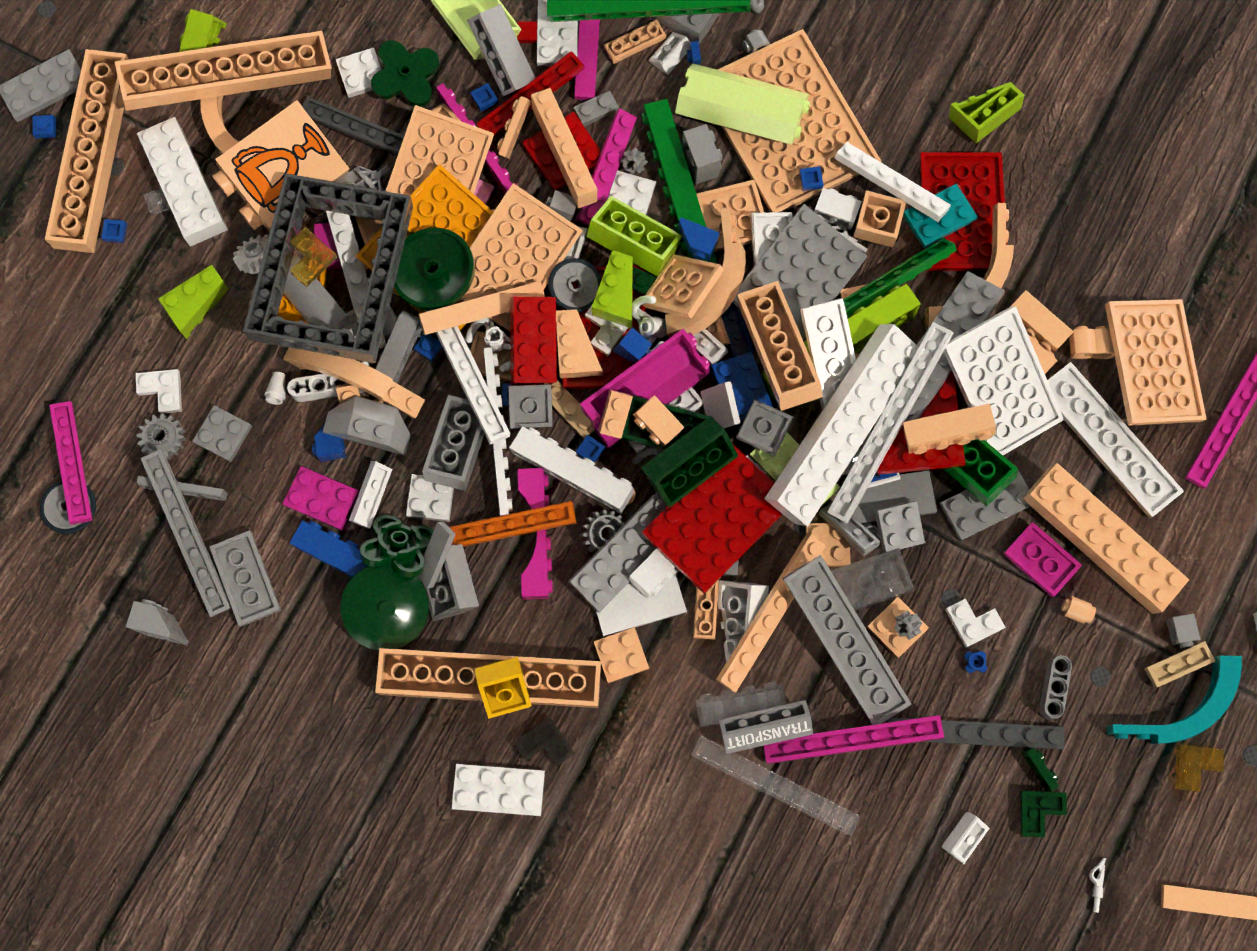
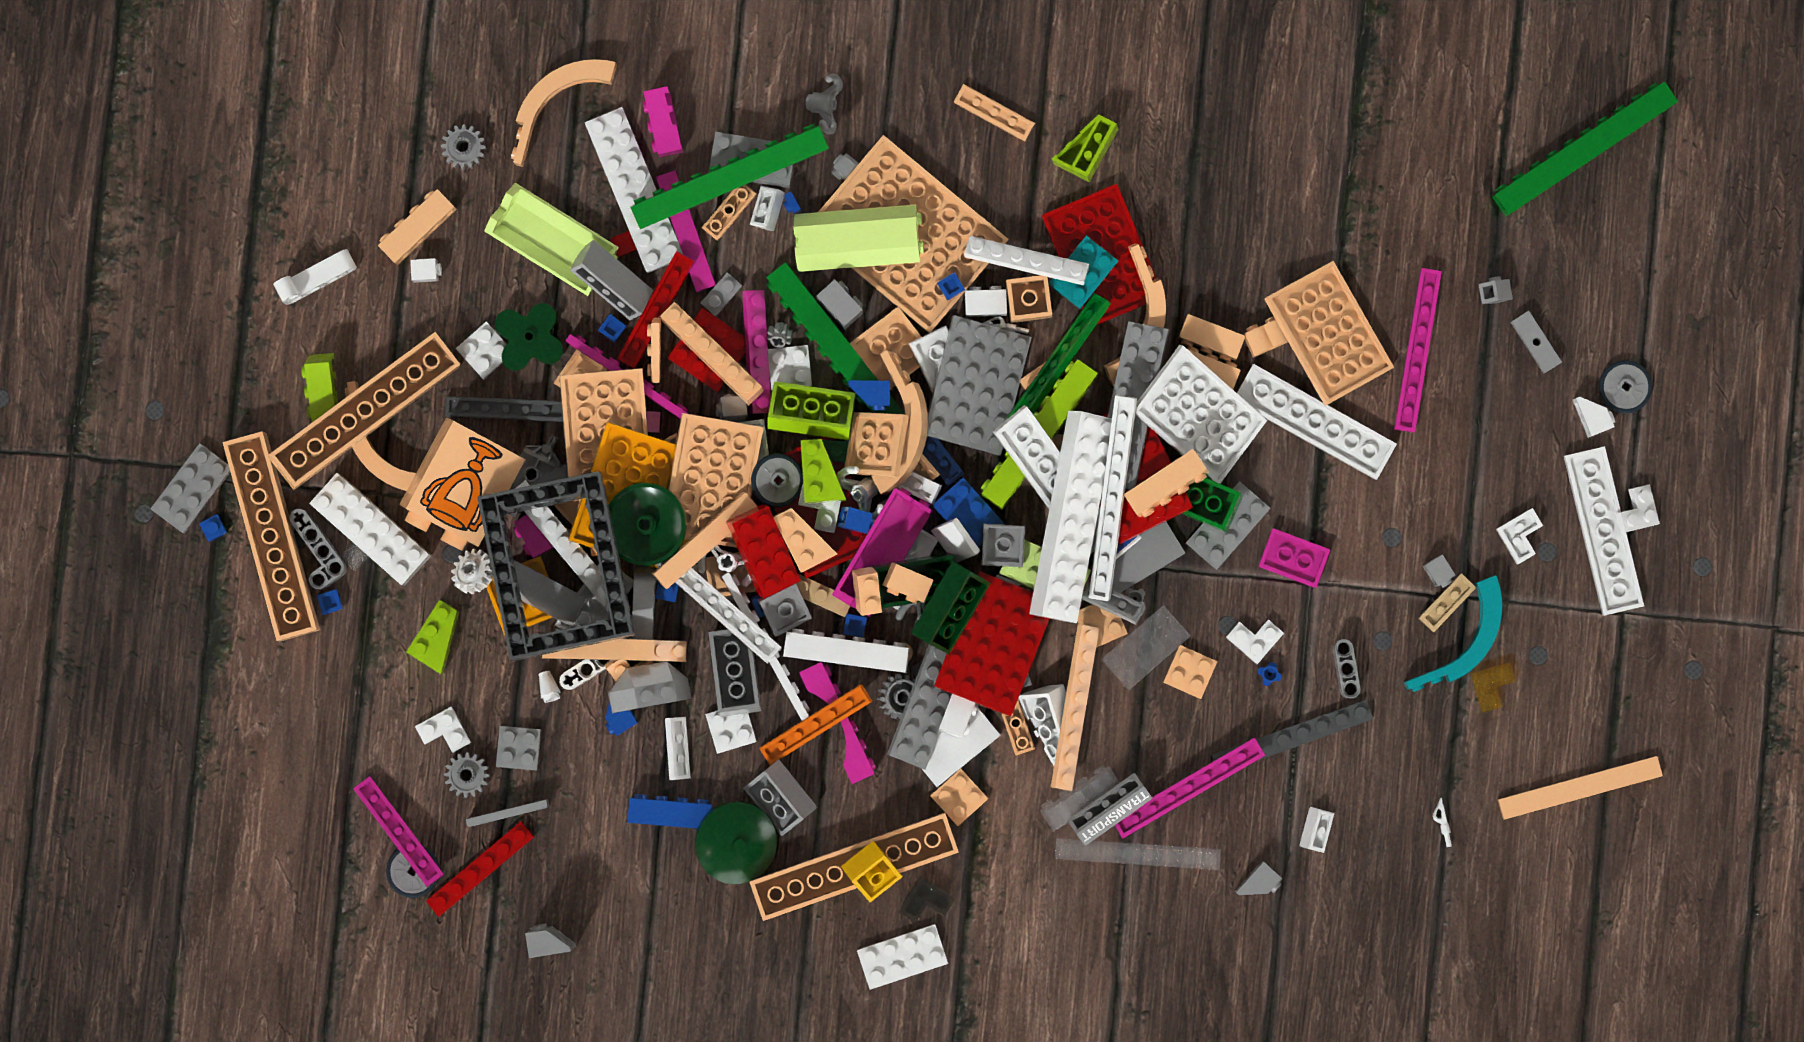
camera: 20 degrees left, 10 degrees up
(120, 534) = (480, 869): none -> red plate
(126, 176) = (315, 546): none -> light grey beam
(186, 533) = (532, 851): light grey plate -> none
(245, 578) = (601, 868): light grey plate -> none
(316, 257) = (544, 566): clear yellow plate -> none
(321, 498) = (634, 769): dark pink plate -> none
(397, 546) = (724, 785): dark green plant -> none
(436, 554) = (761, 780): light grey tile -> none
(779, 346) = (987, 469): light nougat brick -> none
(846, 640) = (1149, 706): light grey plate -> none
(889, 865) = (1259, 881): none -> light grey slope
(899, 526) = (1157, 582): light grey plate -> none
(908, 625) = (1198, 669): light grey gear -> none
(911, 52) = (994, 112): none -> light nougat tile
(1035, 806) = (1365, 781): dark green plate -> none
(1036, 762) = (1366, 749): dark green plate -> none
(1078, 610) = (1341, 591): light nougat brick -> none
(1105, 539) = (1341, 518): light nougat brick -> none

